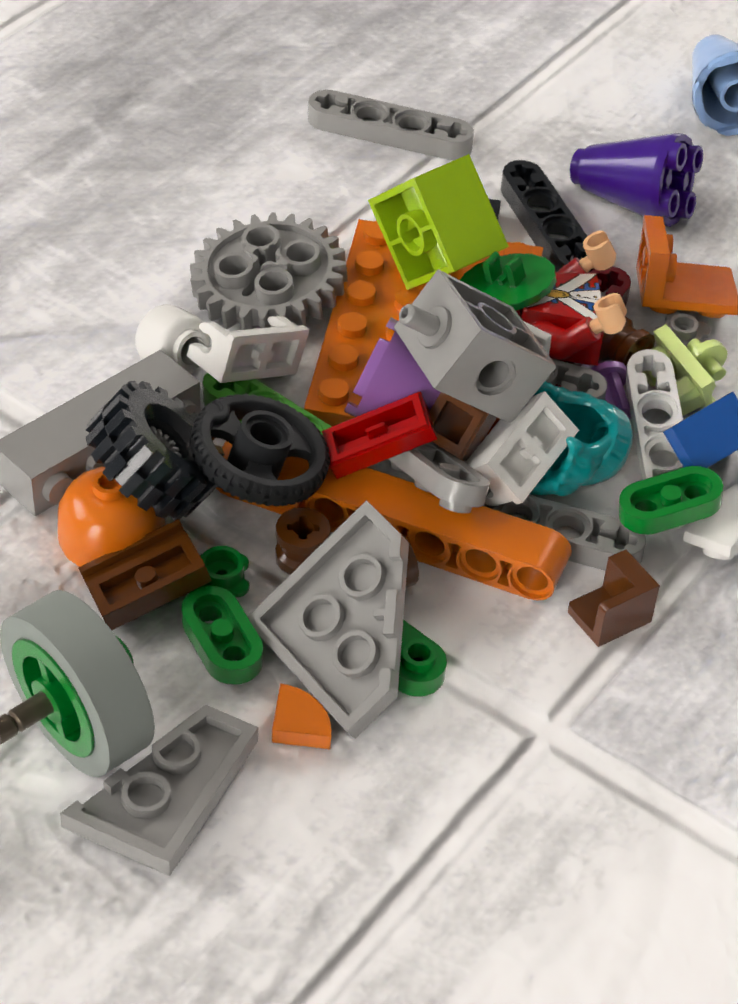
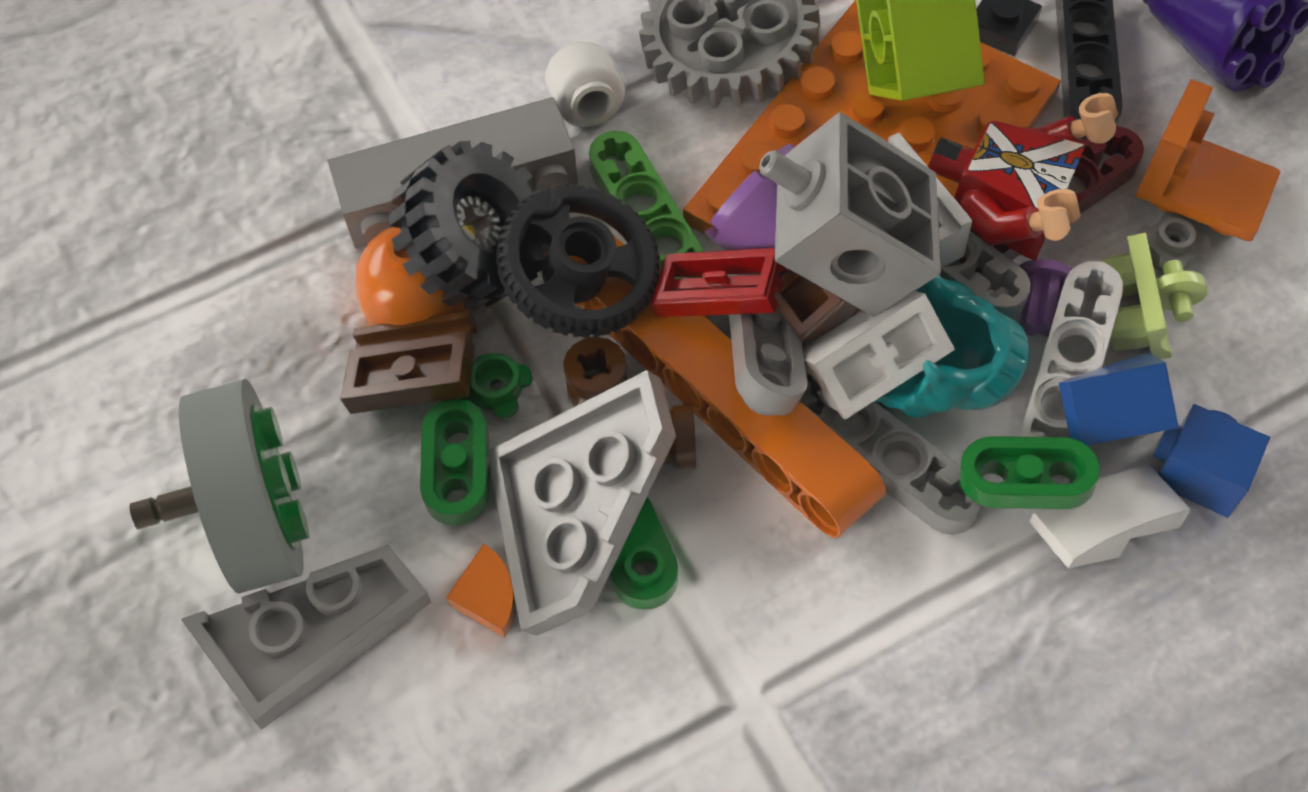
camera: 30 degrees right, 15 degrees up
(251, 352) = (652, 128): white hinge -> none
(513, 278) = (966, 129): green piece -> none
(620, 604) = (905, 576): reddish brown panel -> none
(625, 343) = (1093, 235): reddish brown wheel -> none

